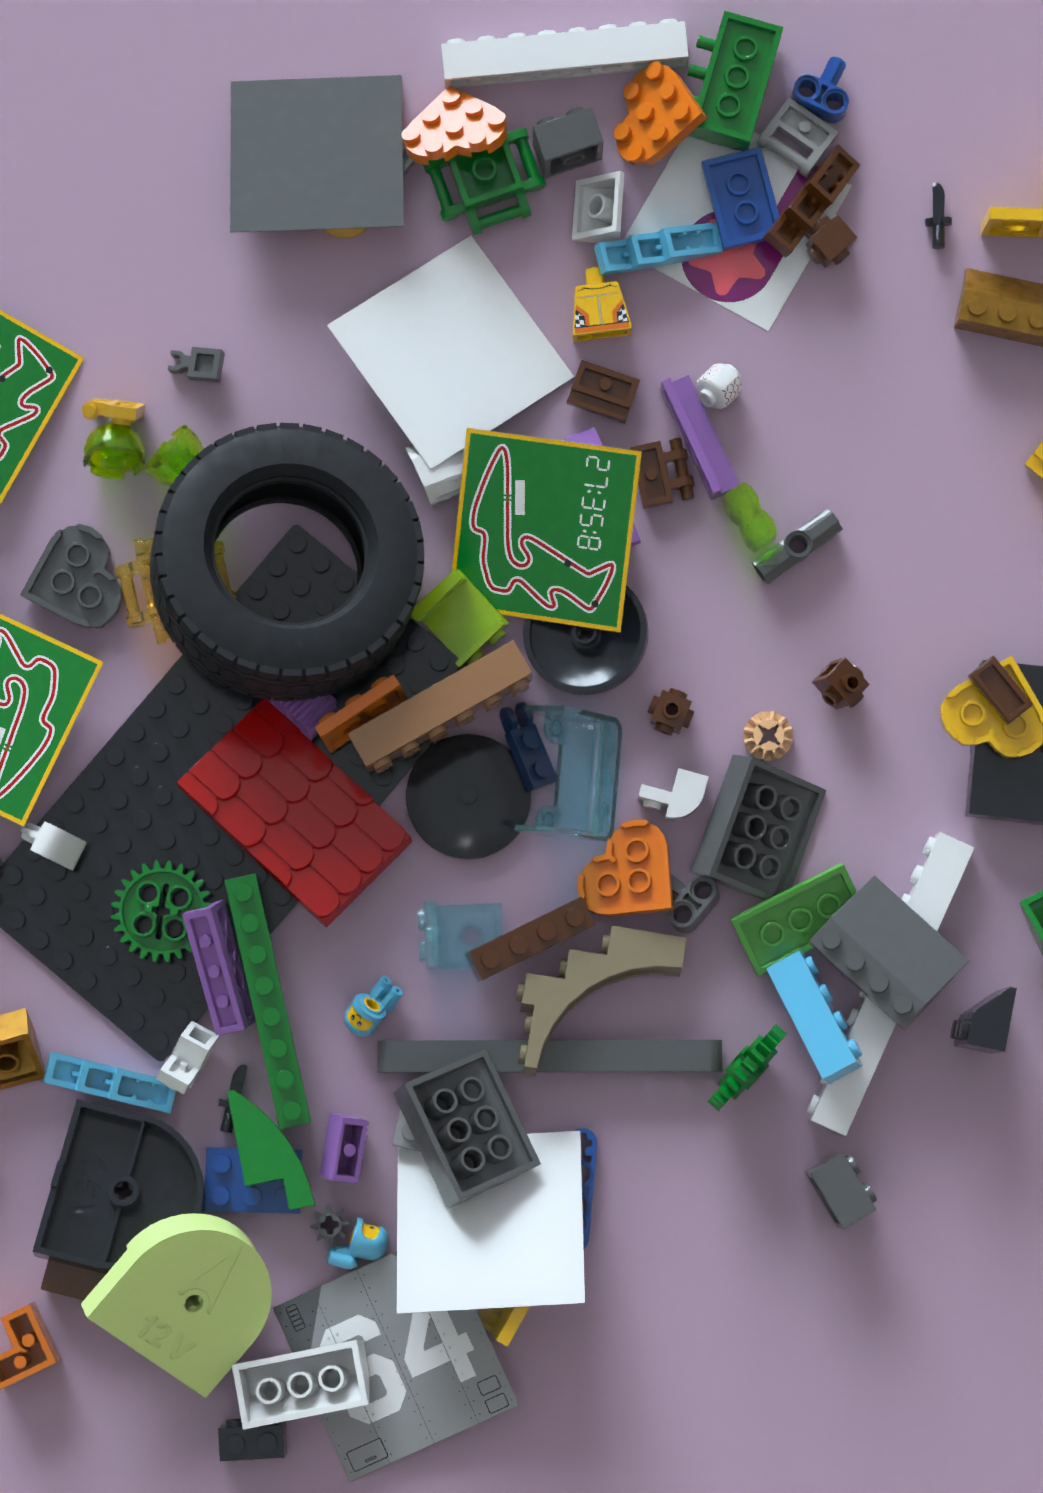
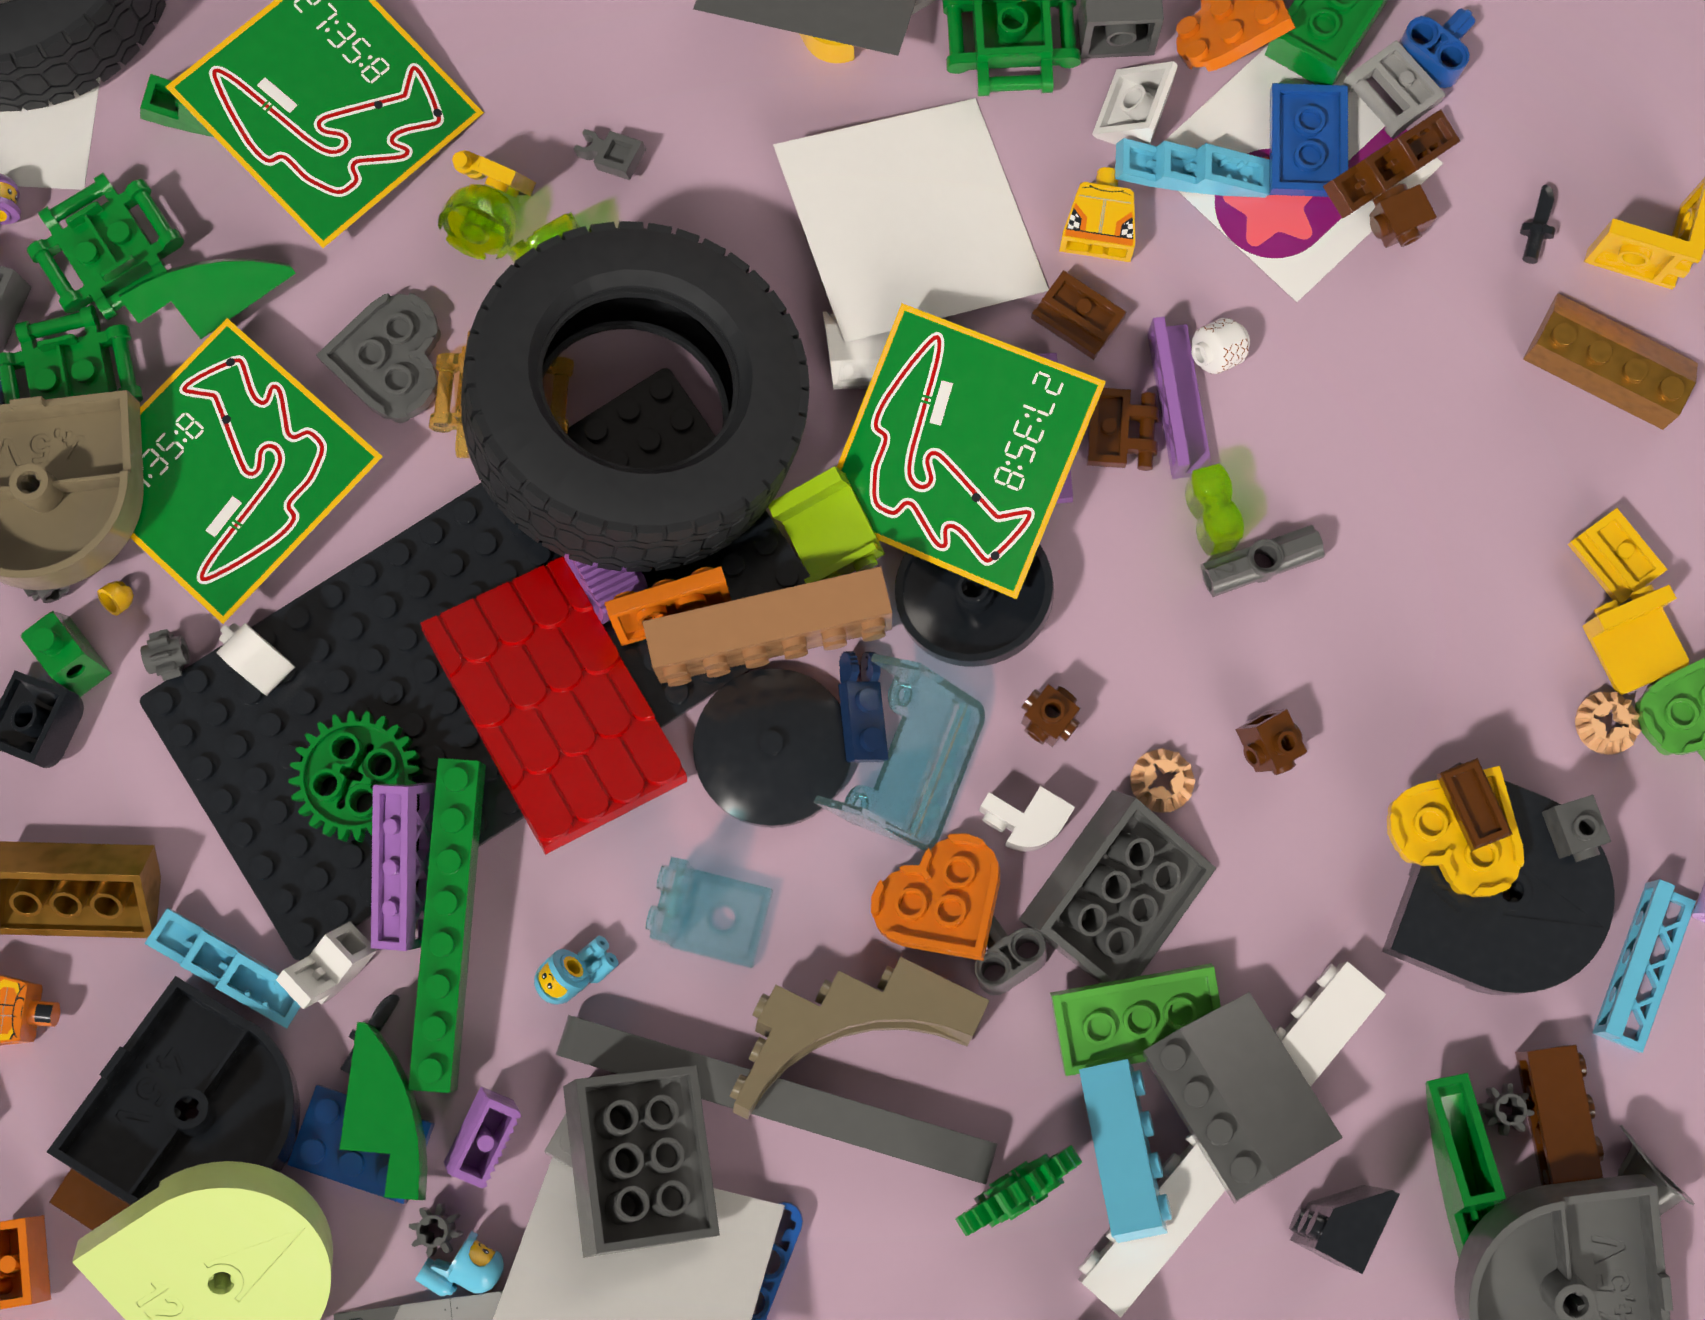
camera: 20 degrees right, 5 degrees down
(529, 939) = (793, 943): reddish brown brick -> none

